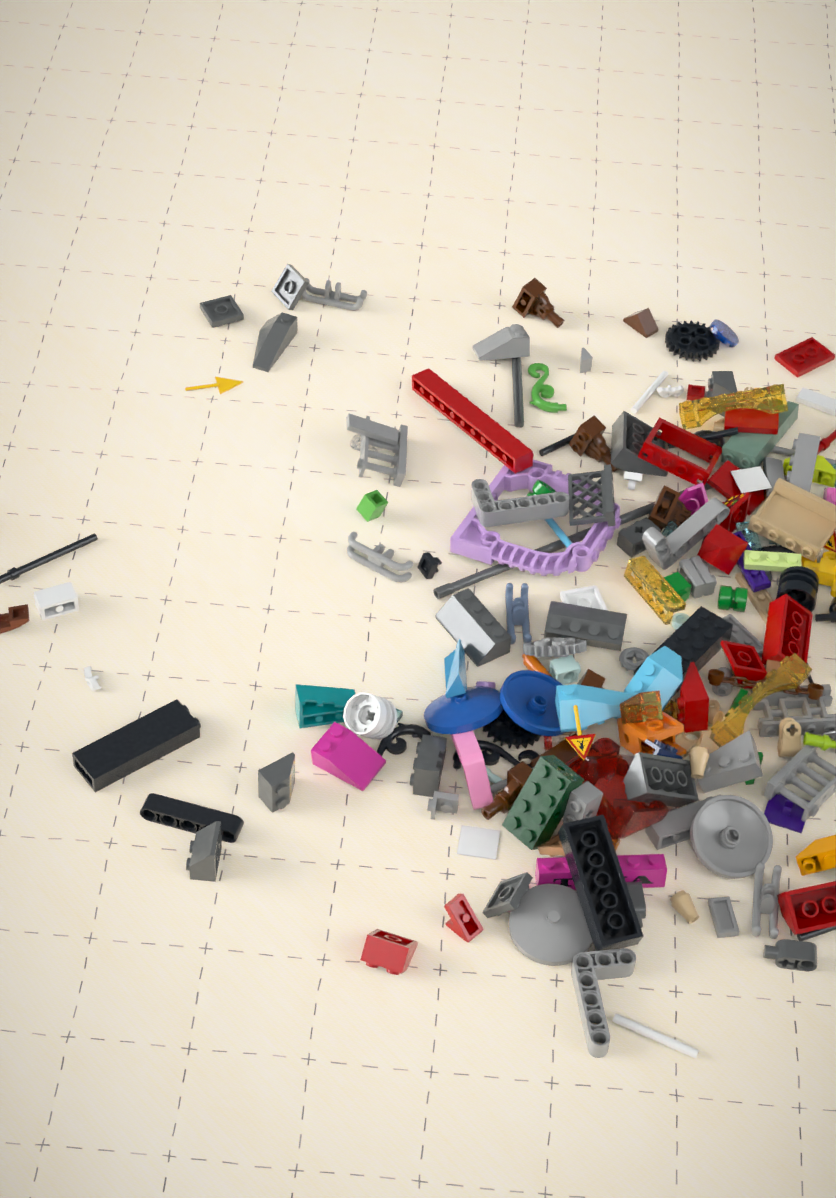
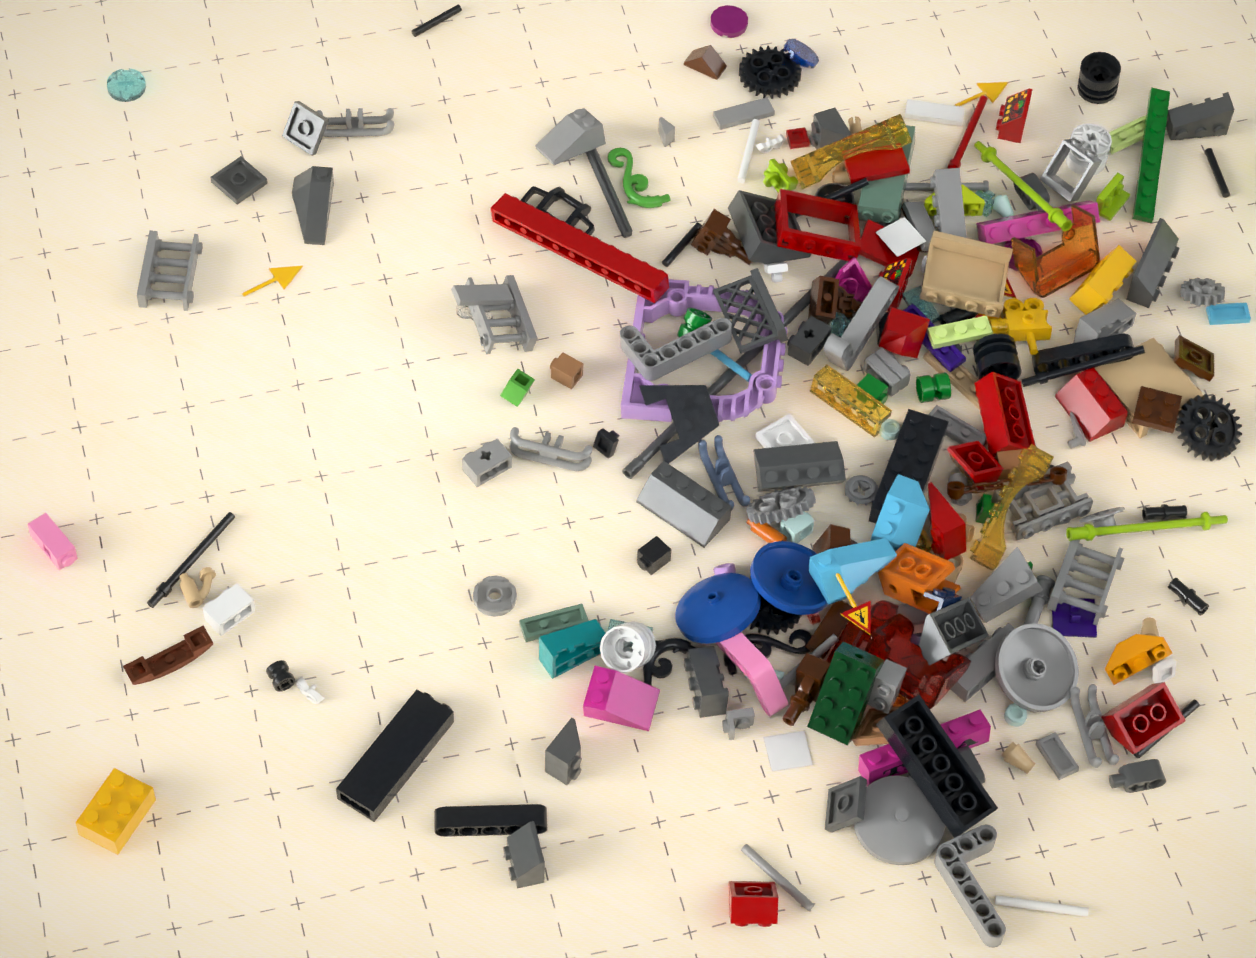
camera: 20 degrees left, 10 degrees up
(33, 578) = (190, 591): none -> tan plant
(72, 660) = (280, 674): none -> black wheel
(125, 346) = (152, 260): none -> light grey fence
(168, 230) = (126, 85): none -> clear light blue tile
(280, 661) = (491, 606): none -> light grey tile
(319, 680) = (552, 621): none -> sand green plate
(321, 553) = (486, 462): none -> light grey brick
(420, 505) = (566, 370): none -> medium nougat brick
(422, 938) = (777, 877): none -> light grey bar
(429, 658) = (653, 555): none -> black brick
(434, 244) = (436, 20): none -> black bar
(455, 672) = (691, 566): dark azure wedge -> none
(463, 918) = (810, 844): slope -> none
(485, 398) = (580, 212): none -> black bar
(507, 558) = (690, 411): none -> black wing
(535, 302) = (588, 72): reddish brown brick -> none
(642, 708) = (904, 554): clear orange slope -> none
(657, 365) = (743, 113): none -> light grey tile
(666, 412) = (777, 177): none -> lime hips
(674, 299) = (729, 21): none -> magenta tile
(698, 761) = (978, 596): tan cone -> none
(698, 873) = (1015, 715): none -> light aqua tile
(759, 784) = (1039, 600): none -> light grey pin
(789, 742) = (1050, 536): tan piece -> none
(804, 357) = (894, 57): red tile -> none

